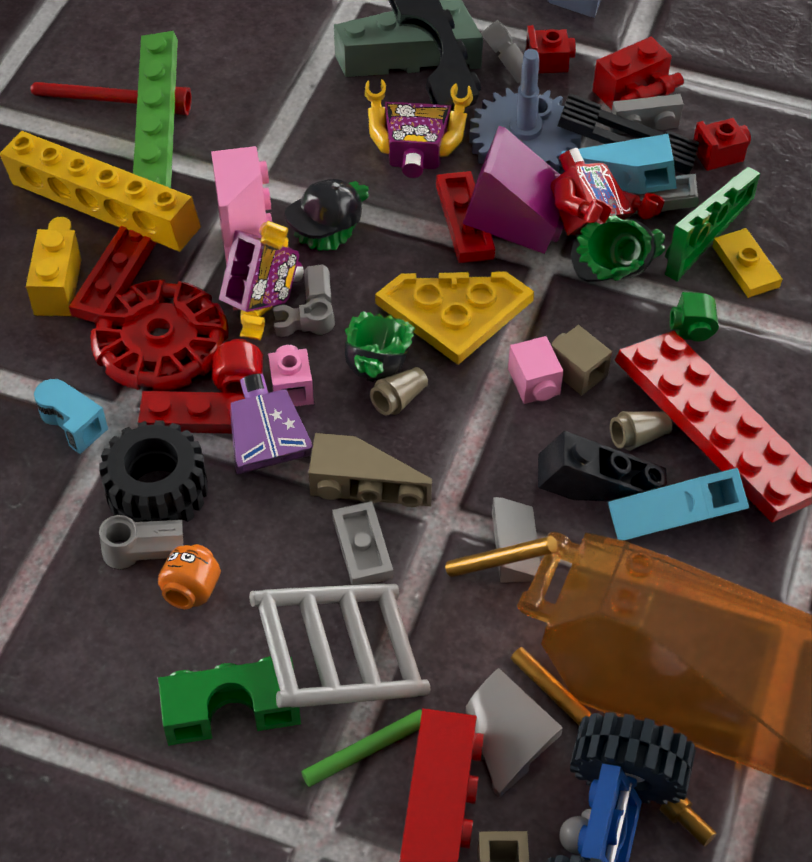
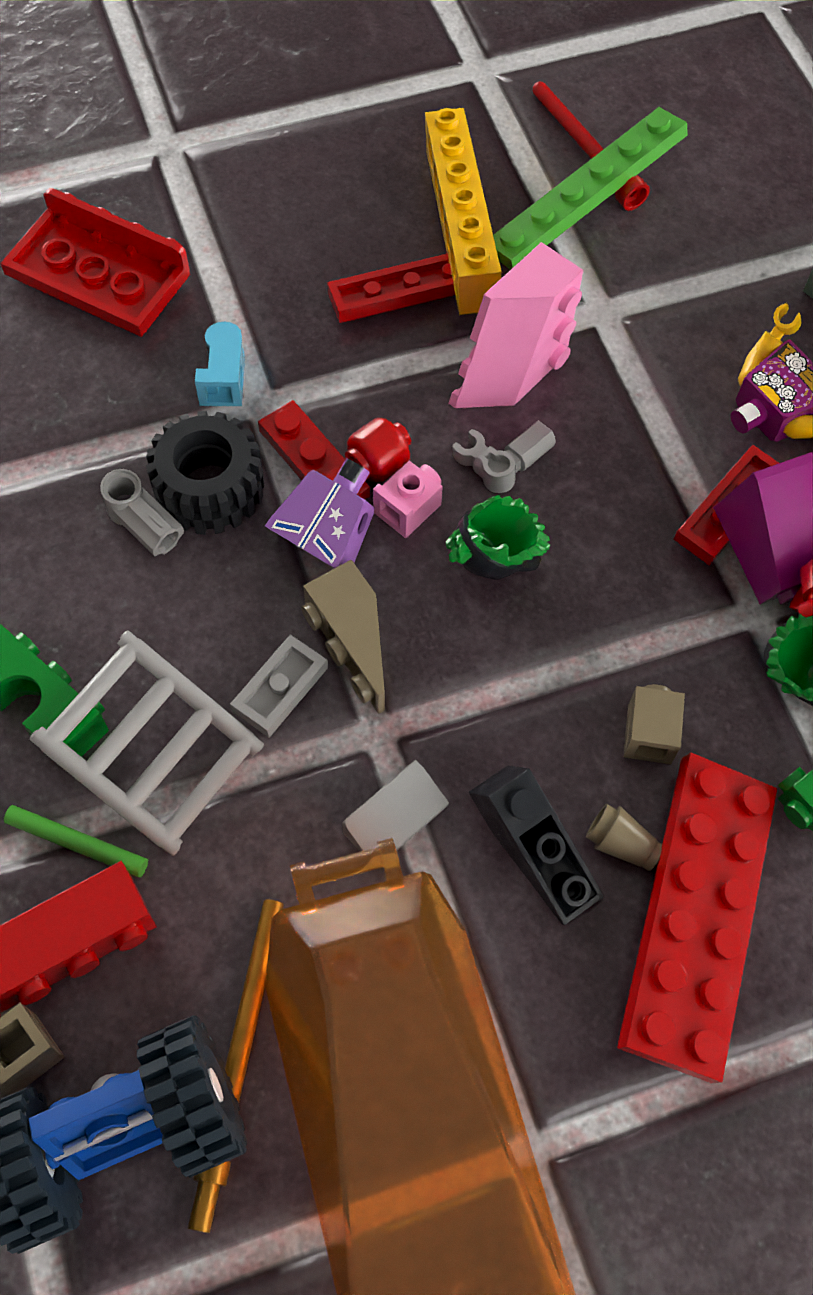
camera: 50 degrees right, 10 degrees up
(54, 269) = (356, 240): yellow brick -> none
(164, 351) = (368, 388): red plate -> none
(189, 576) = (129, 573): orange head -> none
(259, 275) = (482, 391): torso -> none
(327, 213) = (615, 391): black hair -> none
(397, 391) = (474, 594): dark tan cone -> none
(455, 309) = (615, 574): yellow plate -> none
(501, 556) = (345, 815): pearl gold bar -> none
(512, 727) = (180, 954): light grey slope -> none
(535, 370) = (603, 694): bright pink brick -> none
(678, 504) = (557, 940): medium azure slope -> none

